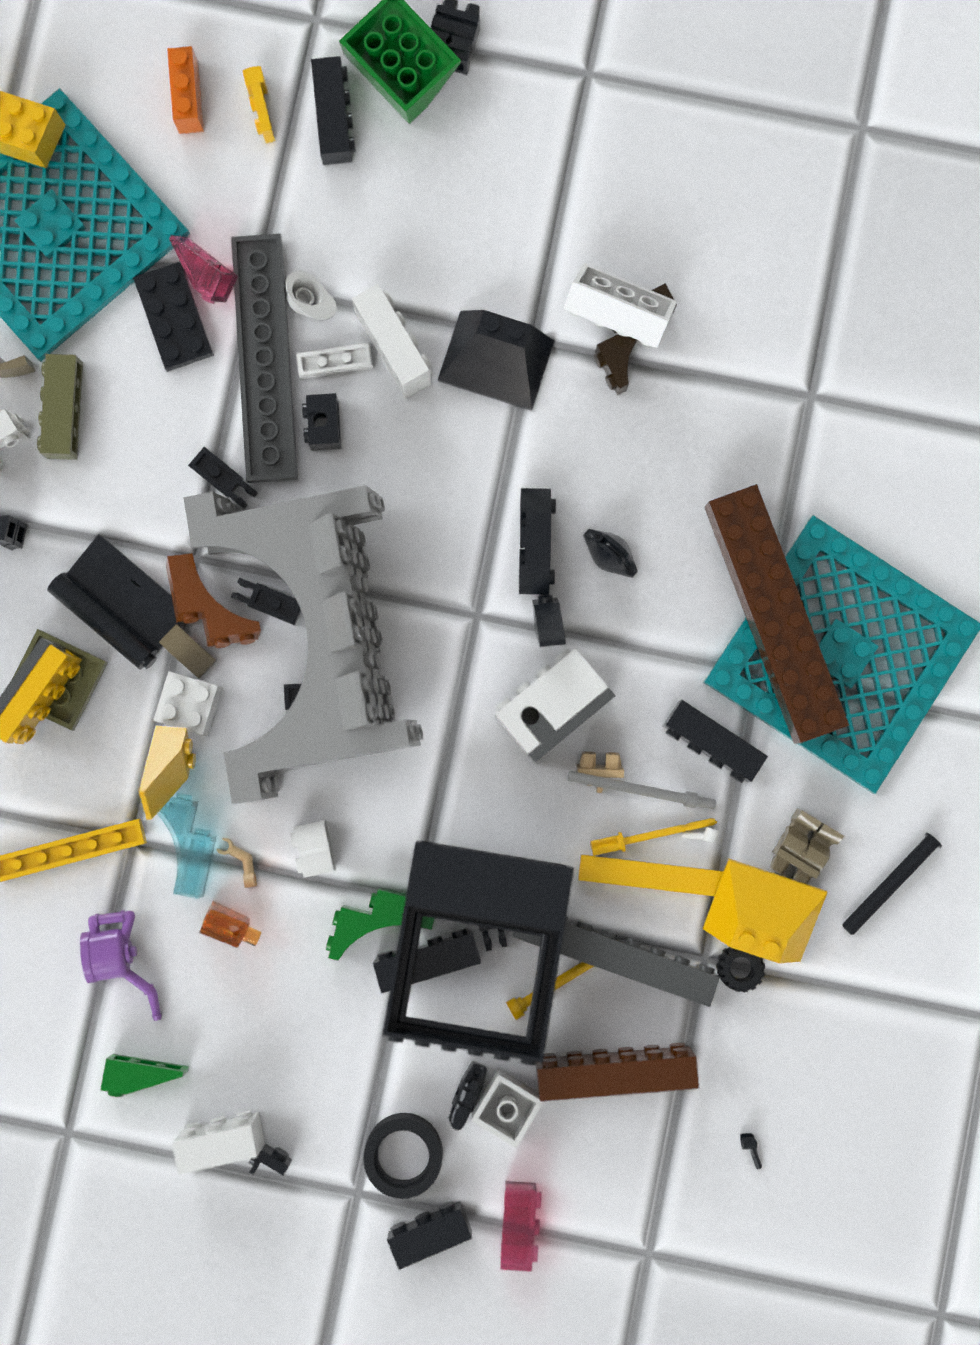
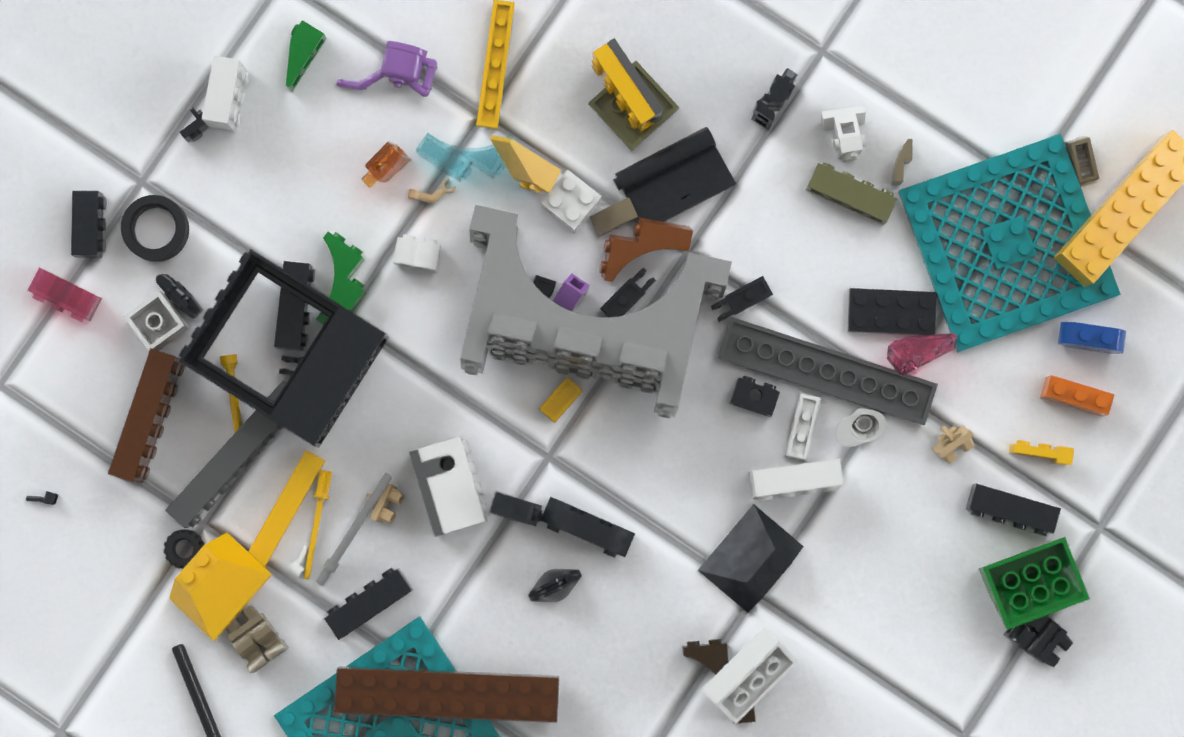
camera: 115 degrees right, 0 degrees up
(116, 96) = (1092, 337): none -> blue brick
(286, 200) = (951, 440): none -> tan hips
(287, 659) = (571, 292): none -> medium lavender slope
(410, 626) = (561, 399): none -> yellow plate

